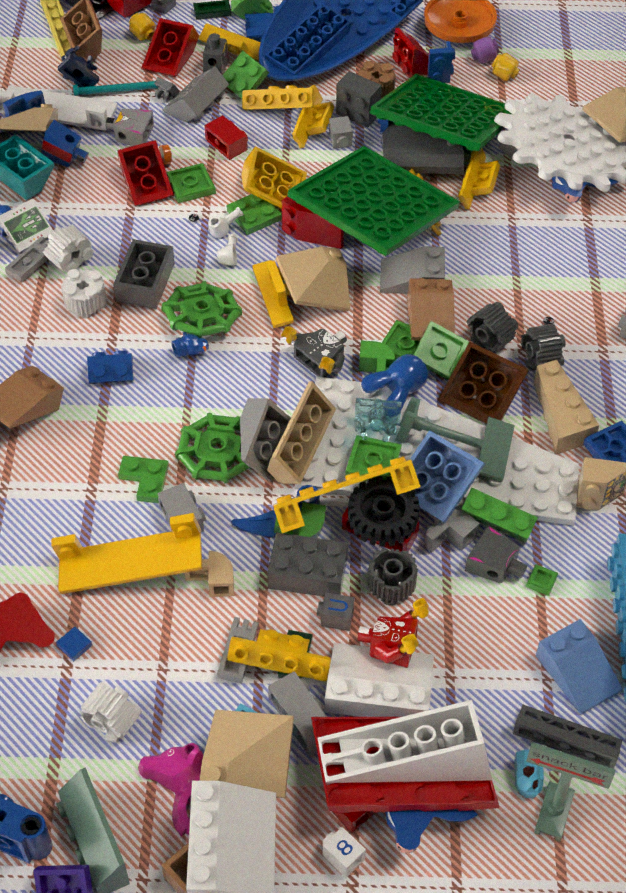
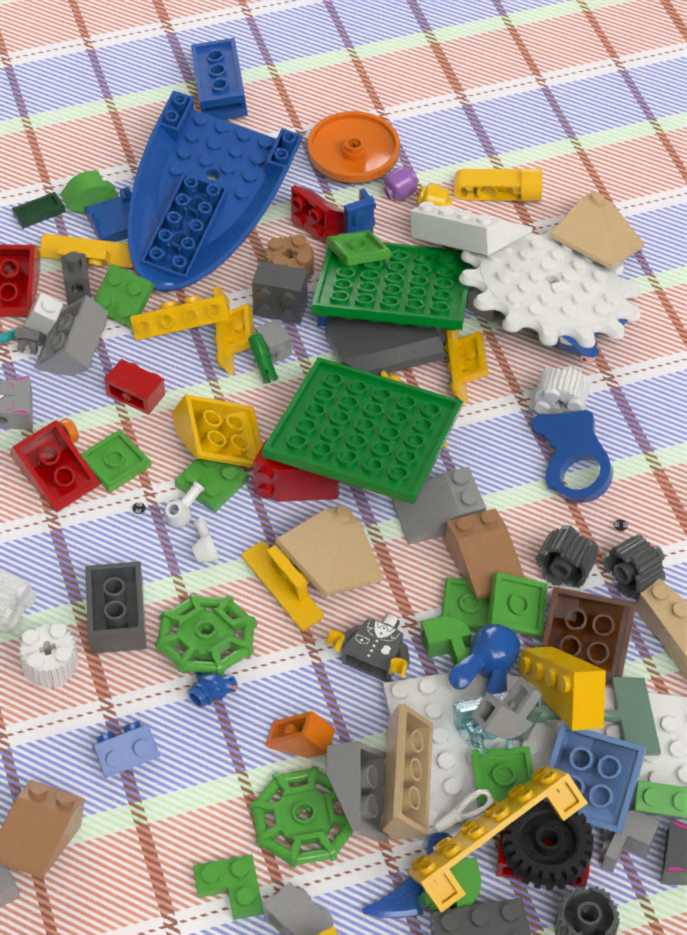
camera: 20 degrees left, 0 degrees up
(182, 74) = (43, 314): none -> white brick
(237, 391) = (301, 735): none -> orange slope
(326, 140) = (262, 358): none -> green axle
(326, 474) = (457, 815): none -> white piece
(387, 413) = (508, 716): none -> light grey brick
(430, 83) = (358, 247): none -> bright green tile
(445, 409) = (568, 685): none -> yellow wedge
(515, 86) = (463, 229): none -> white slope
(536, 251) = (574, 441): none -> blue animal
(540, 217) = (561, 391): none -> white brick
(561, 67) = (499, 184): none -> yellow beam

